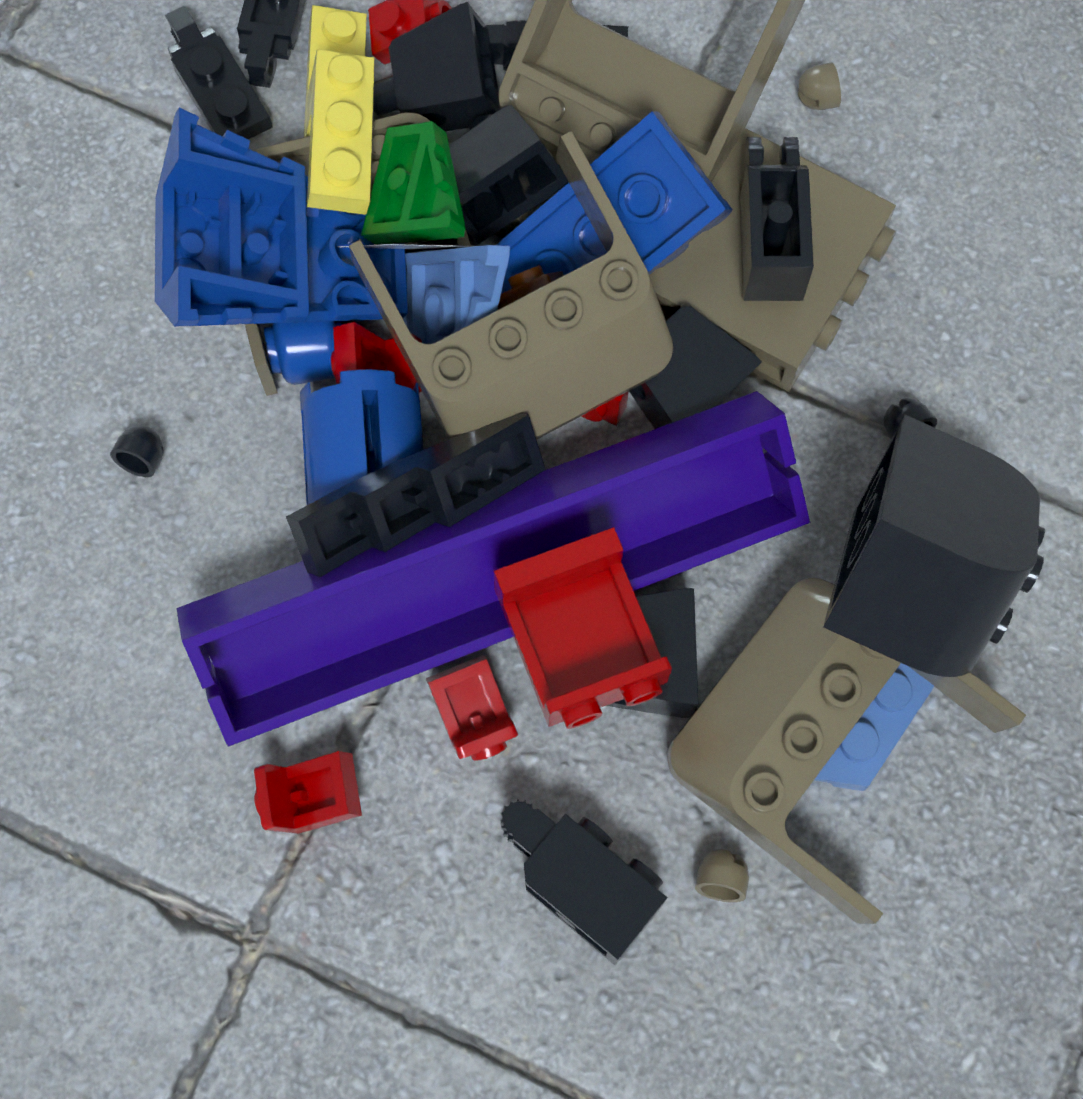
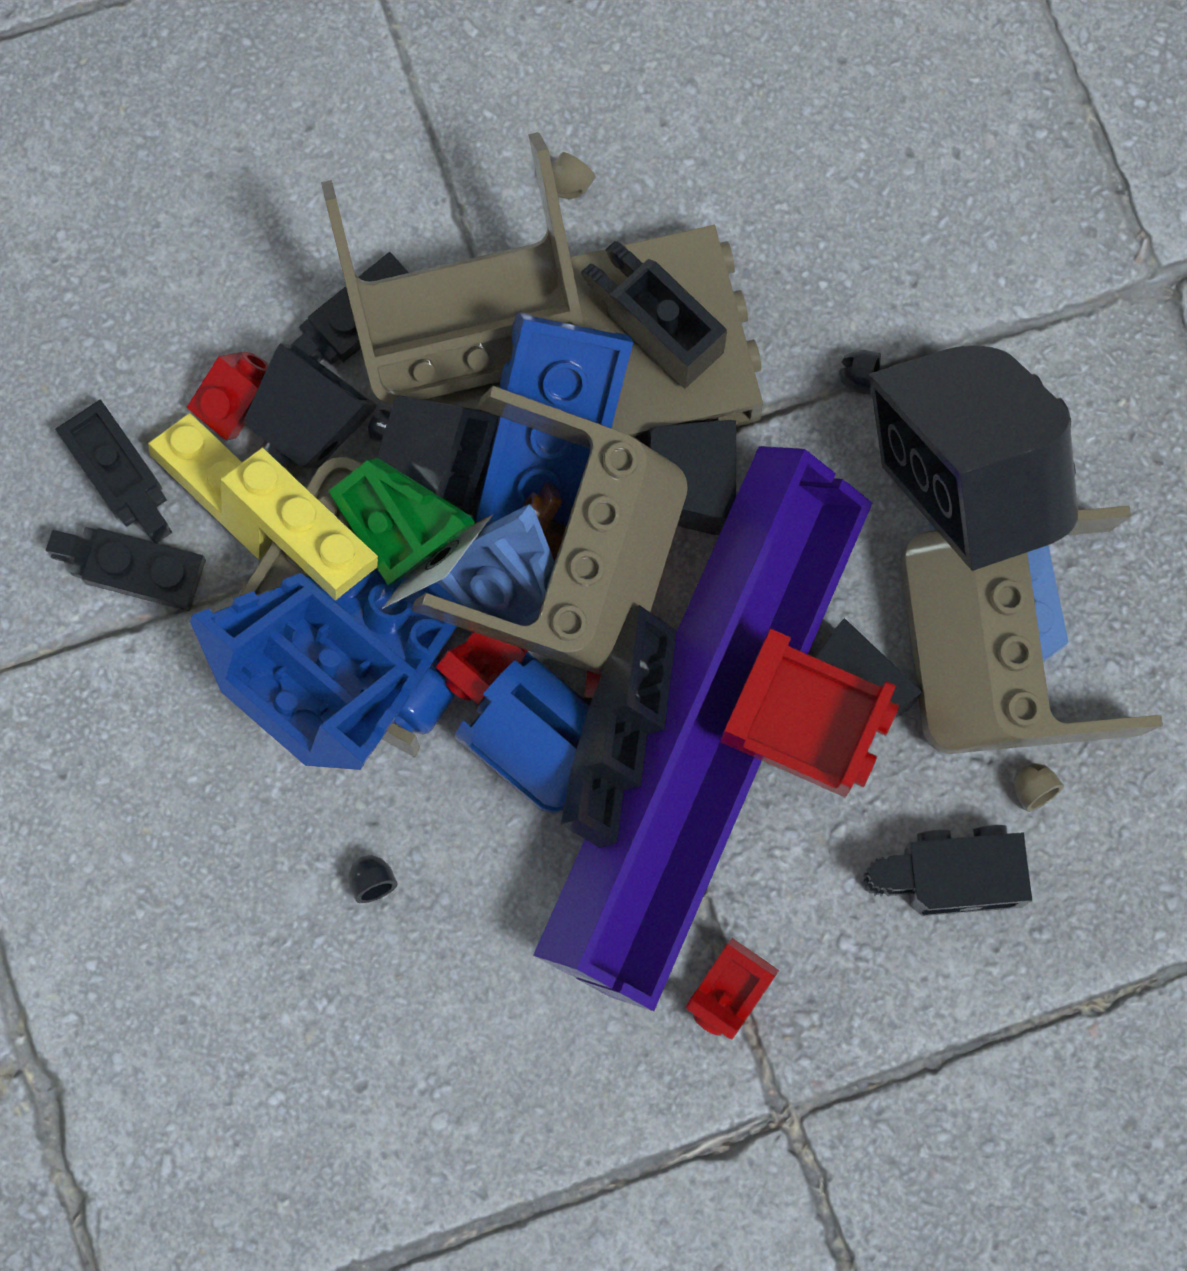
camera: 45 degrees left, 5 degrees up
(472, 709) = (779, 834): red bracket -> none

